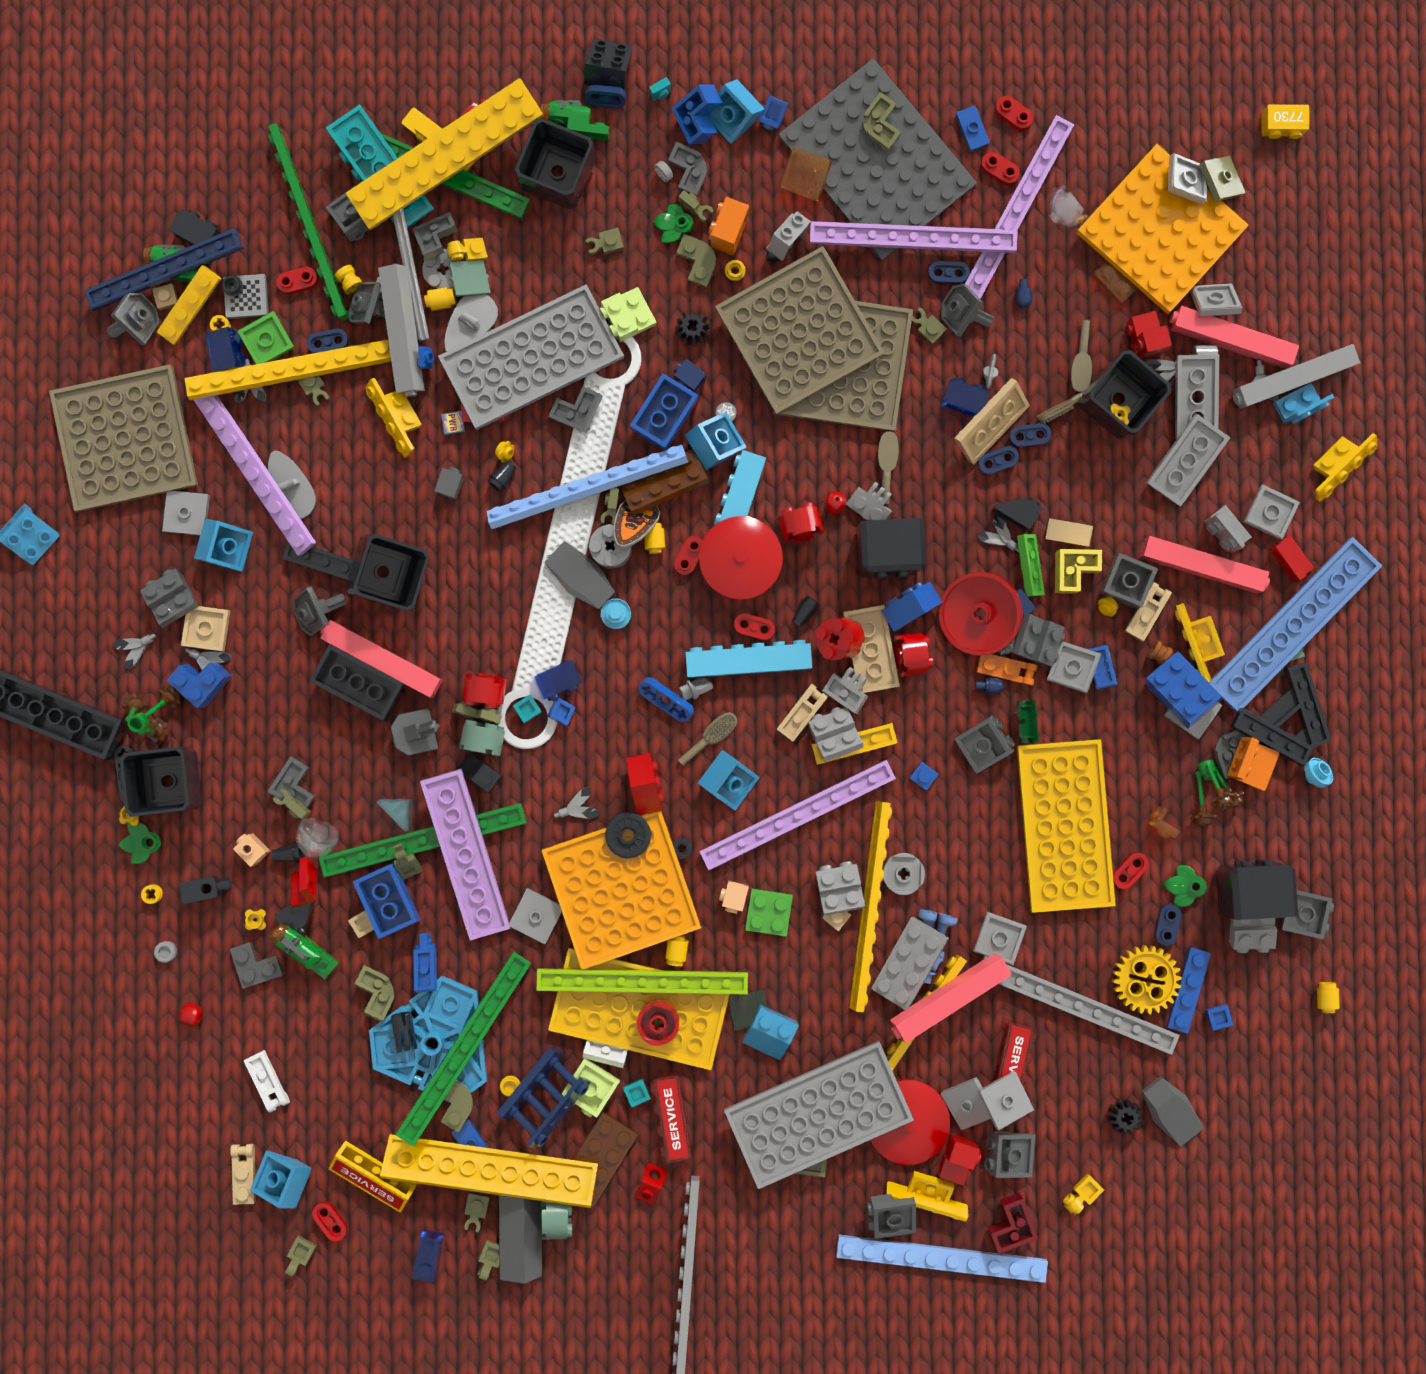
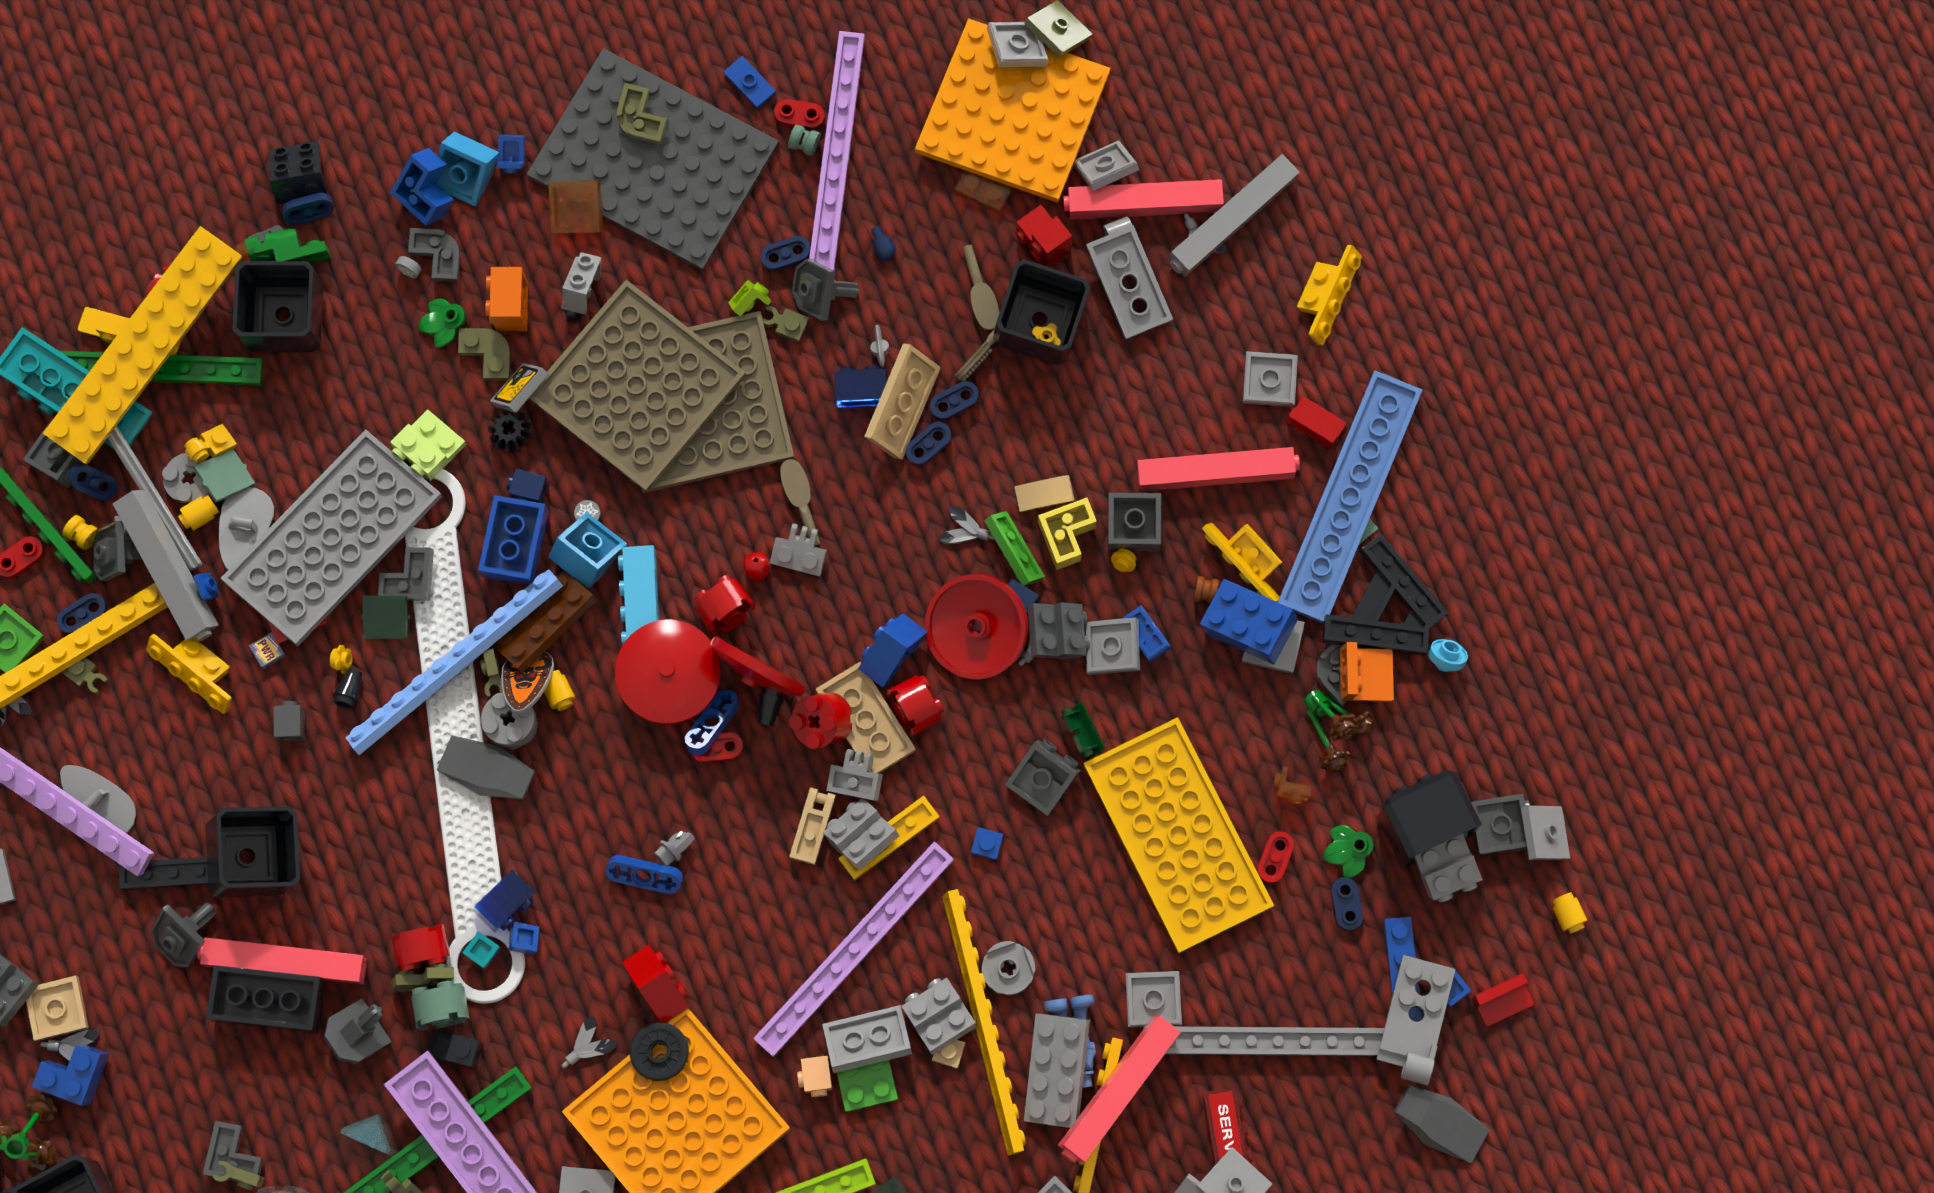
camera: 15 degrees left, 10 degrees down
(223, 545) = (42, 900): dark azure slope -> none
(369, 243) = (91, 480): none -> dark blue plate
(430, 233) = (158, 442): dark grey plate -> none
(548, 432) = (385, 617): none -> clear green piece
(609, 241) = (374, 371): olive plate -> none
(616, 613) = (545, 797): medium azure plate -> none
(660, 89) = (369, 177): teal plate -> none
(676, 951) = (771, 1168): yellow brick -> none
(682, 855) = (732, 1035): black plate -> none
(689, 555) = (606, 694): red plate -> none
(691, 203) = (455, 291): olive plate -> none
(712, 297) = (519, 387): none -> tile
(713, 734) = (717, 894): dark tan piece -> none
(728, 780) = (755, 939): dark azure slope -> none
(735, 264) = (530, 341): yellow plate -> none
(748, 660) = (724, 789): medium azure brick -> none
(756, 615) = (710, 734): none -> blue beam
(781, 885) = (867, 1039): none -> light grey plate
(806, 584) = (754, 670): none -> red dish
(890, 548) = (839, 591): black plate -> none
(906, 294) = (745, 297): none -> lime bracket
(913, 237) = (727, 229): lavender plate -> none
(990, 685) = (1023, 707): dark blue cylinder -> none
(1000, 193) = (804, 140): none -> sand green wheel
(1006, 669) = (1034, 680): orange plate -> none
(1012, 114) = (789, 48): red plate -> none
(1019, 512) = (976, 492): black slope -> none
(1066, 208) = (891, 131): clear cylinder -> none
(1132, 1119) = (1388, 1142): black gear -> none
(1147, 615) = (1173, 549): tan plate -> none
(1150, 961) = (1352, 1001): yellow gear -> none
(1167, 367) = (1080, 262): light grey piece -> none
(1172, 1044) = (1411, 1042): none -> light grey hinge
(1188, 460) = (1147, 357): light grey plate -> none
(1227, 530) = (1227, 418): light grey bracket -> none
(1253, 1039) = (1503, 1000): none -> red panel
(1300, 404) = (1251, 243): dark azure bracket -> none
(1335, 933) = (1545, 833): none -> light grey plate

